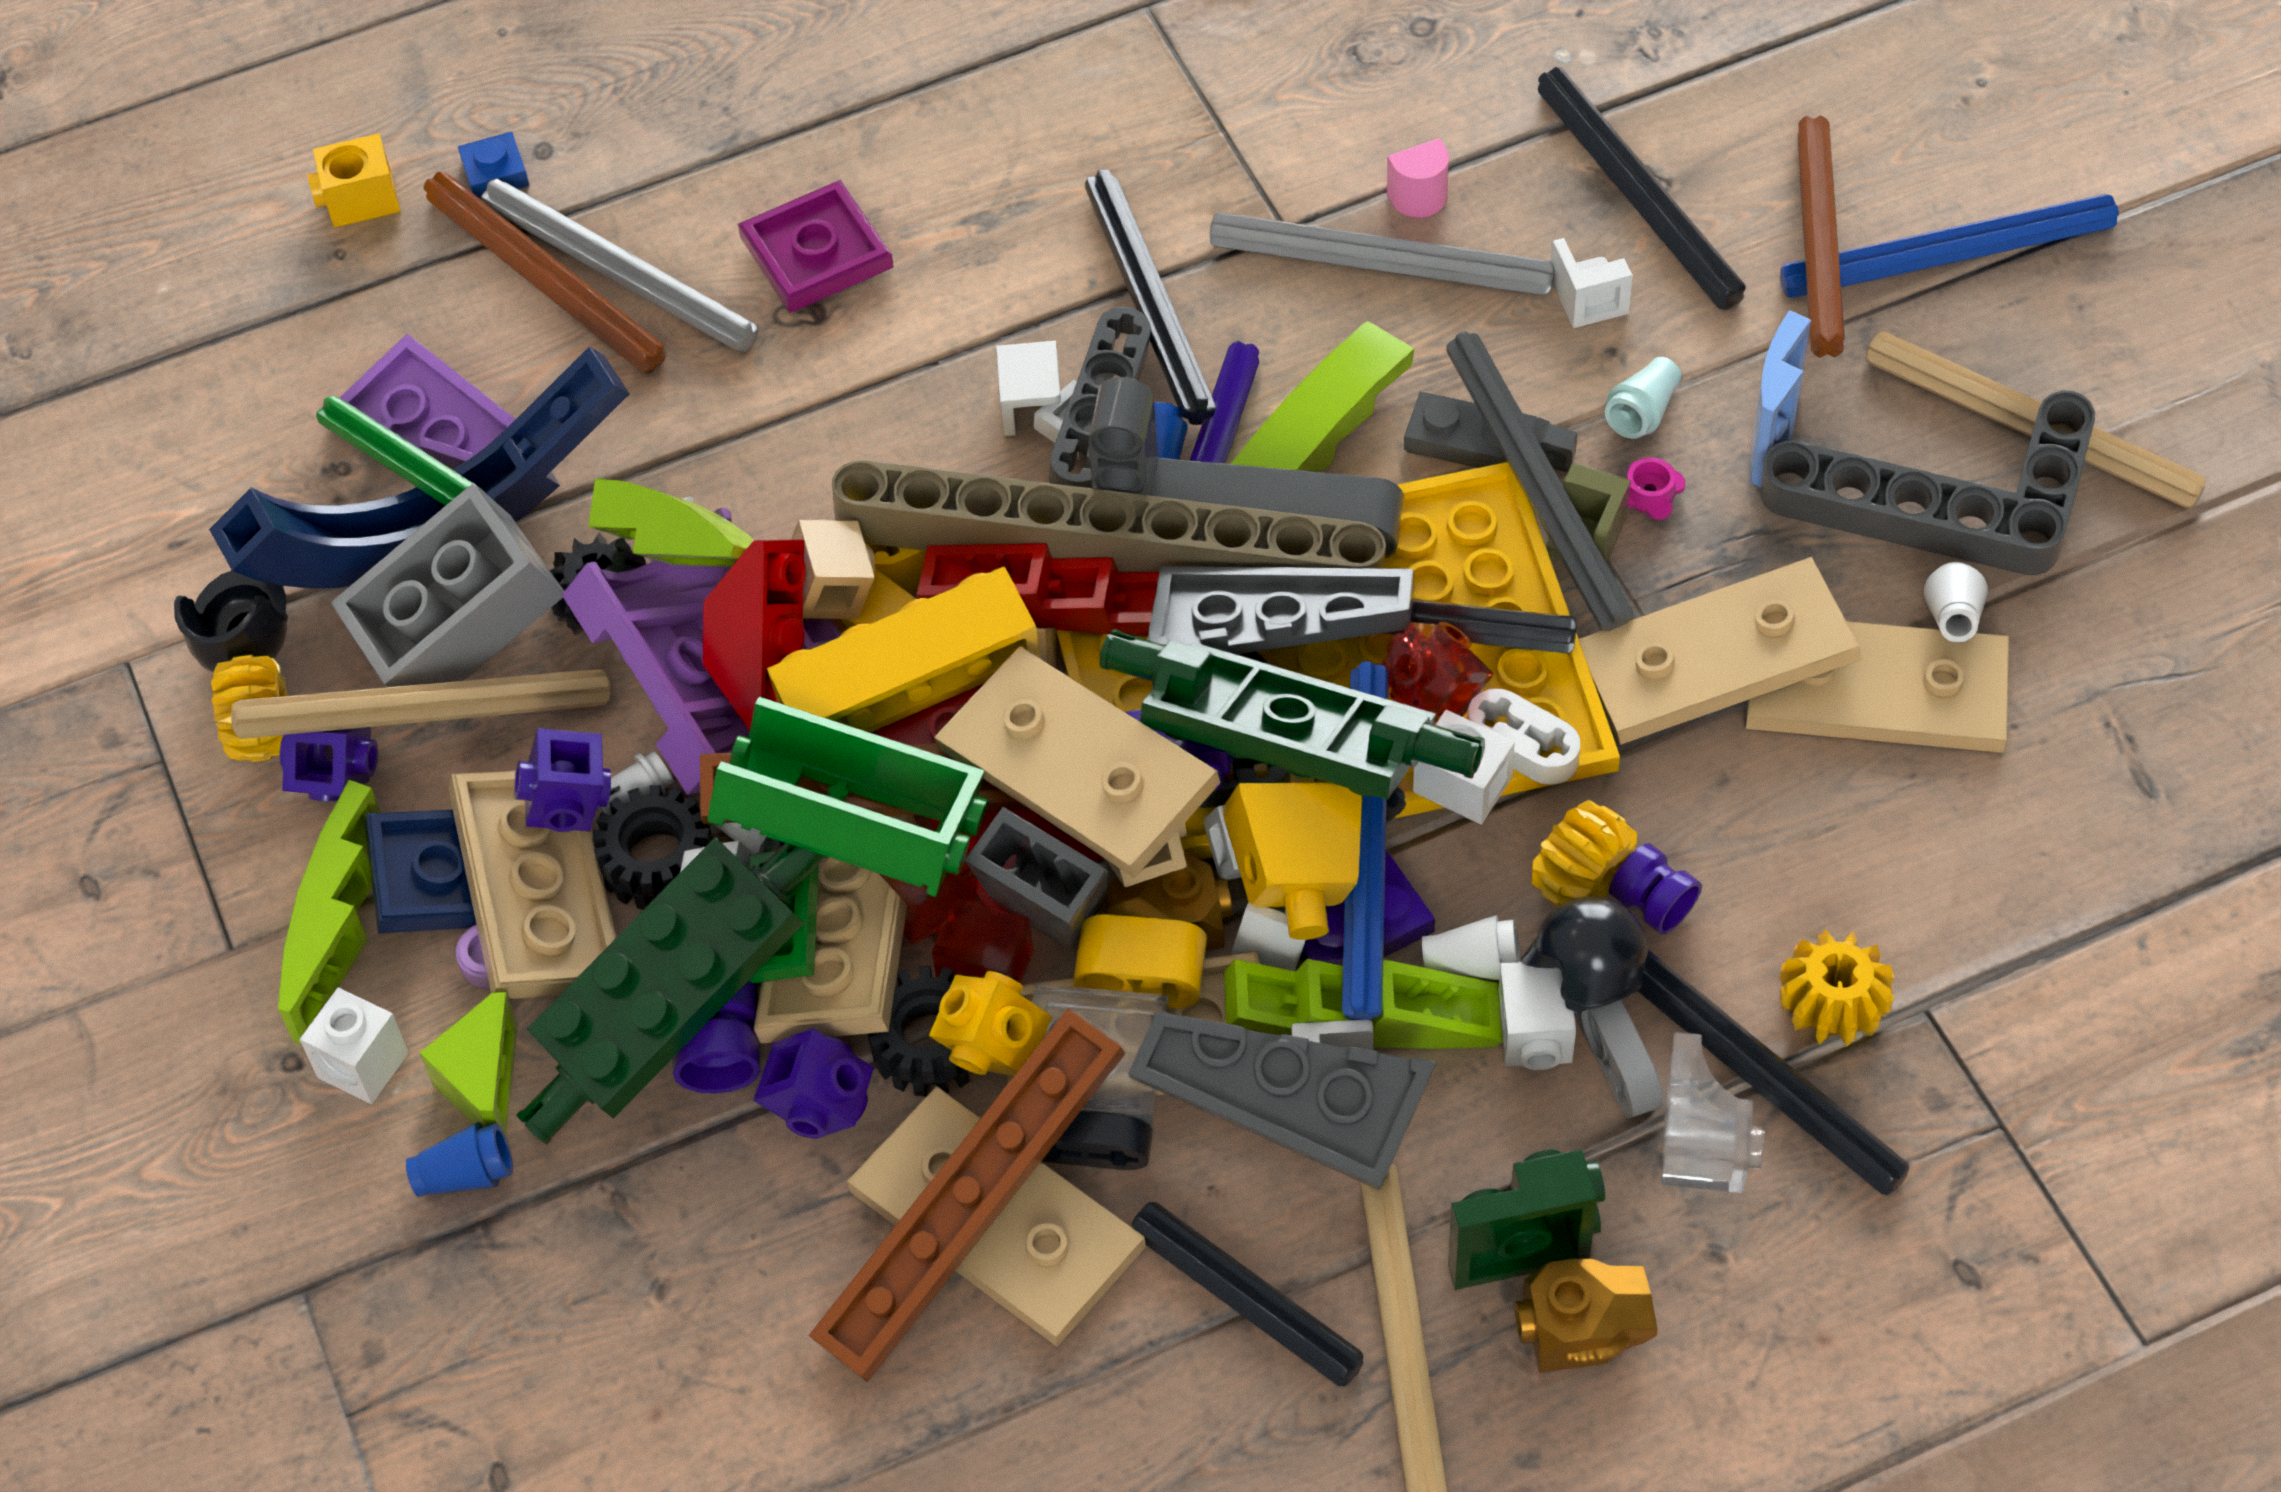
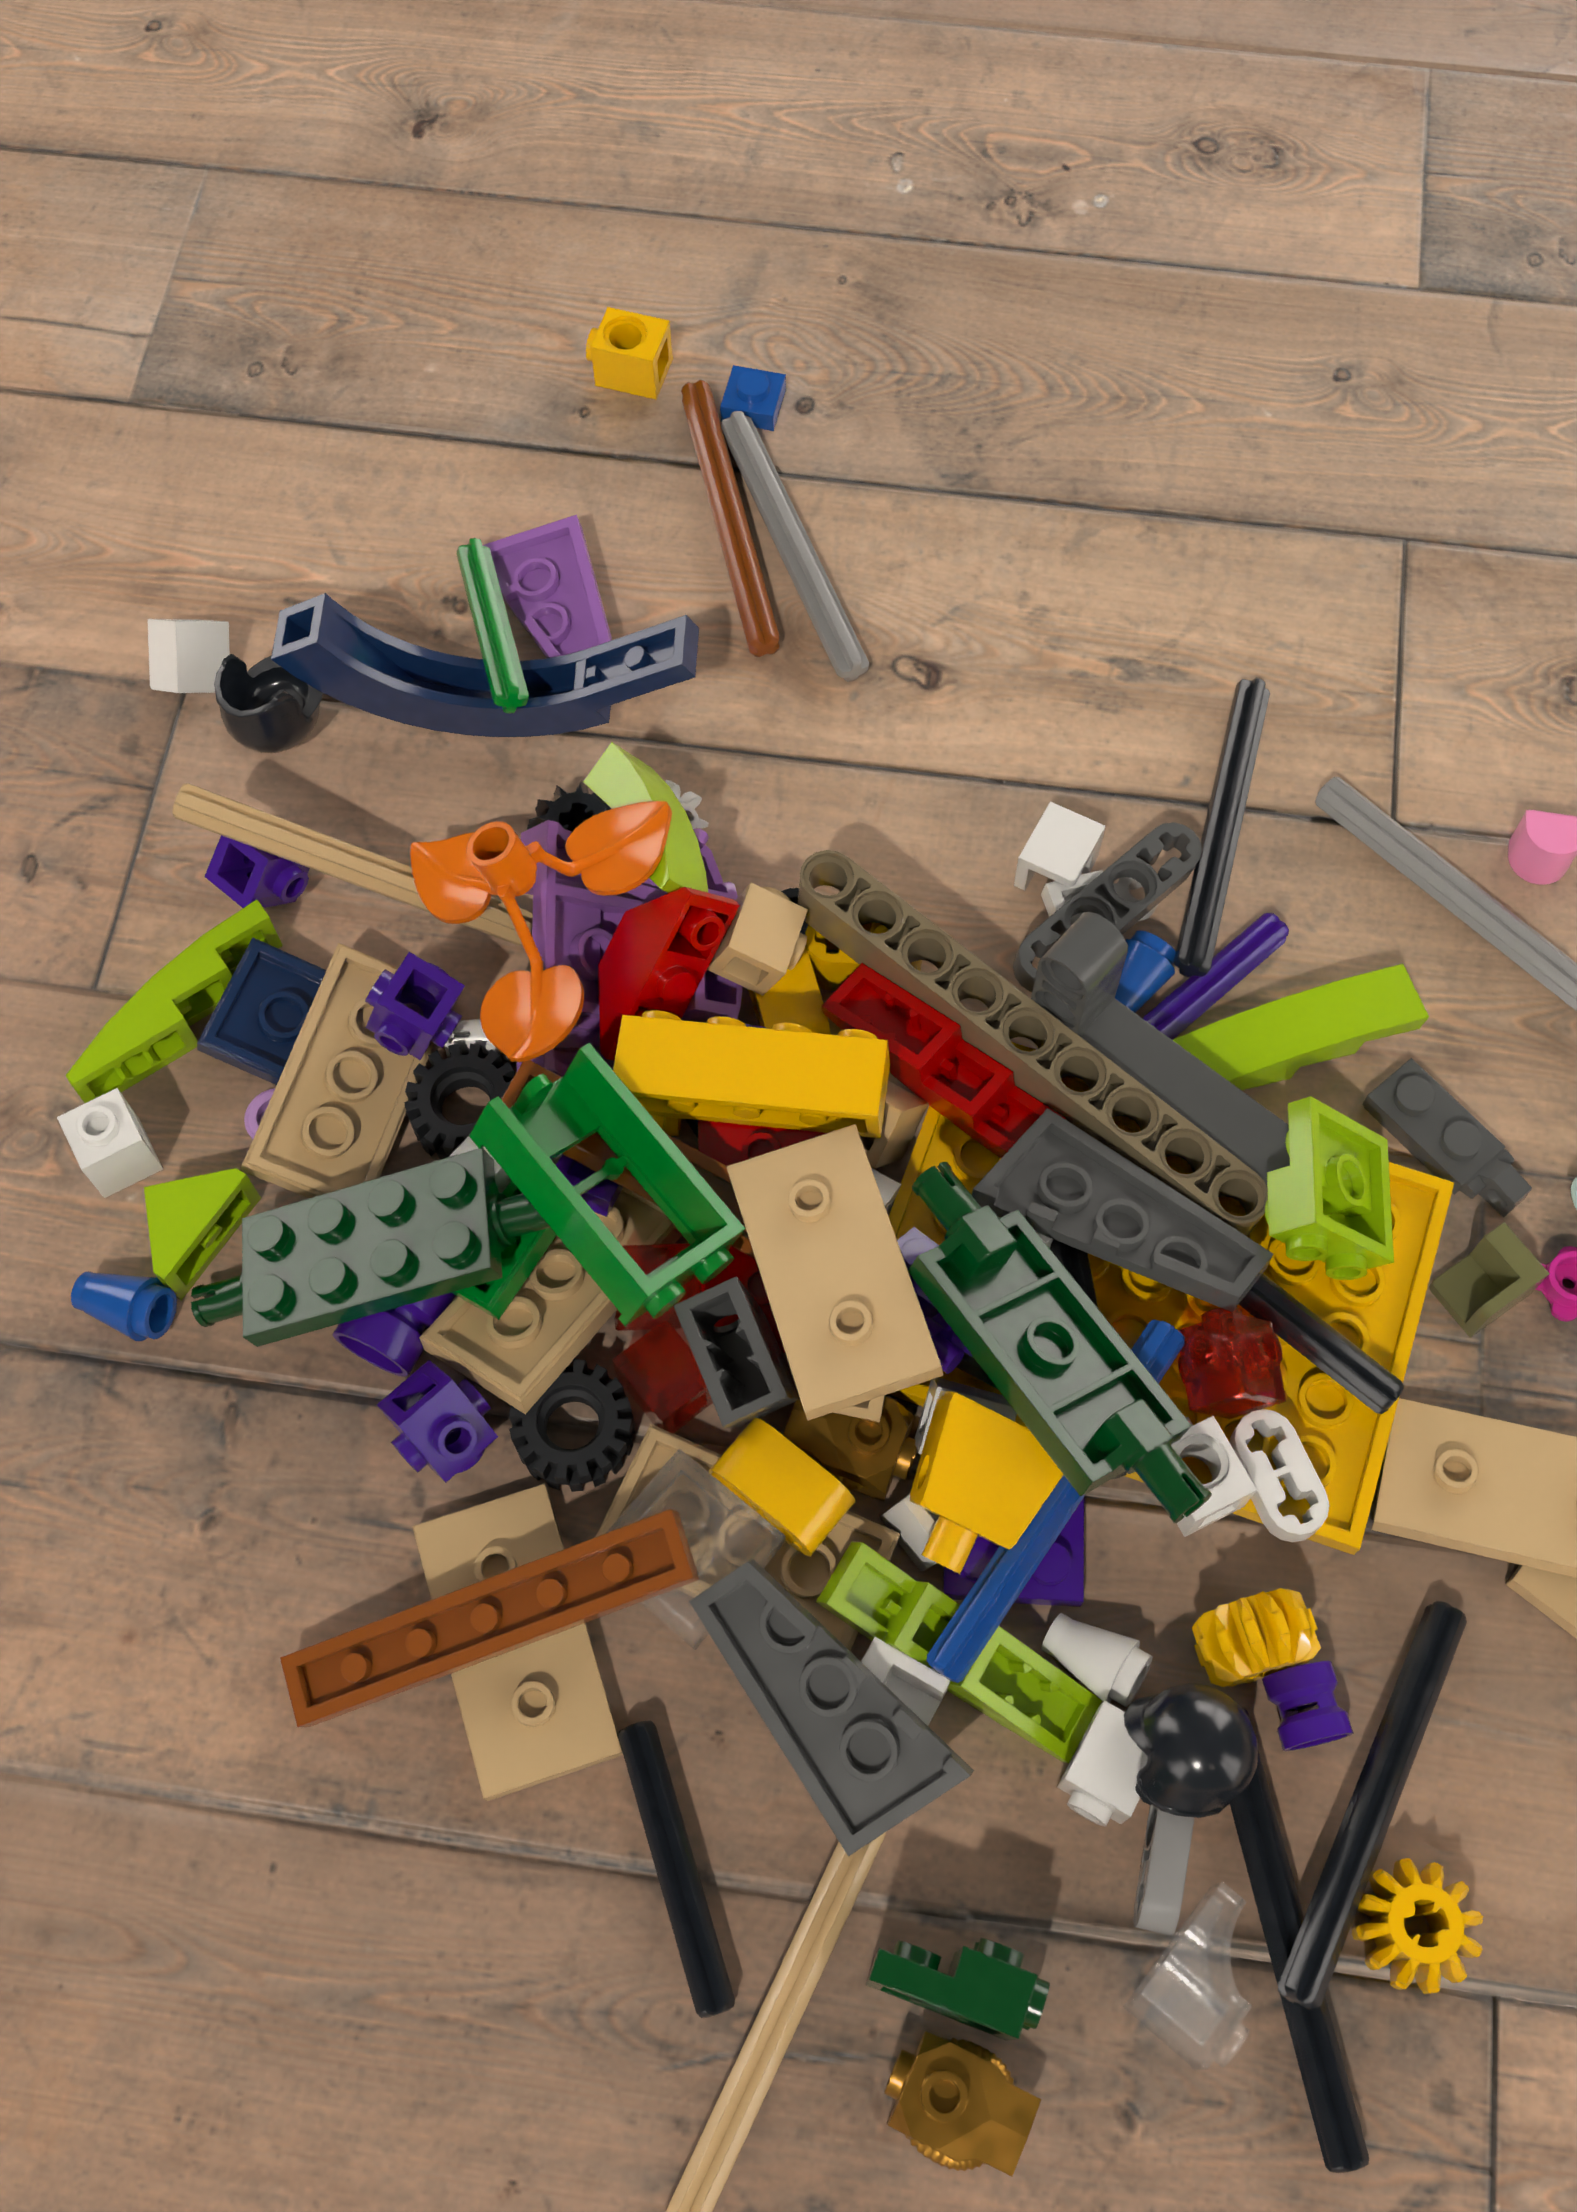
camera: 30 degrees right, 10 degrees up
(118, 630) = (186, 654): none -> white panel
(242, 680) = (236, 771): yellow gear -> none
(448, 595) = (438, 774): light grey brick -> none
(532, 654) = (455, 879): none -> orange plant
(815, 246) = (966, 616): magenta plate -> none
(989, 1024) = (604, 1471): yellow brick -> none
(1103, 1142) = (651, 1638): black beam -> none
(1427, 505) = (1333, 1194): none -> lime plate
(1539, 482) = (1461, 1223): dark grey axle -> none
(1749, 925) = (1371, 1807): none -> black axle

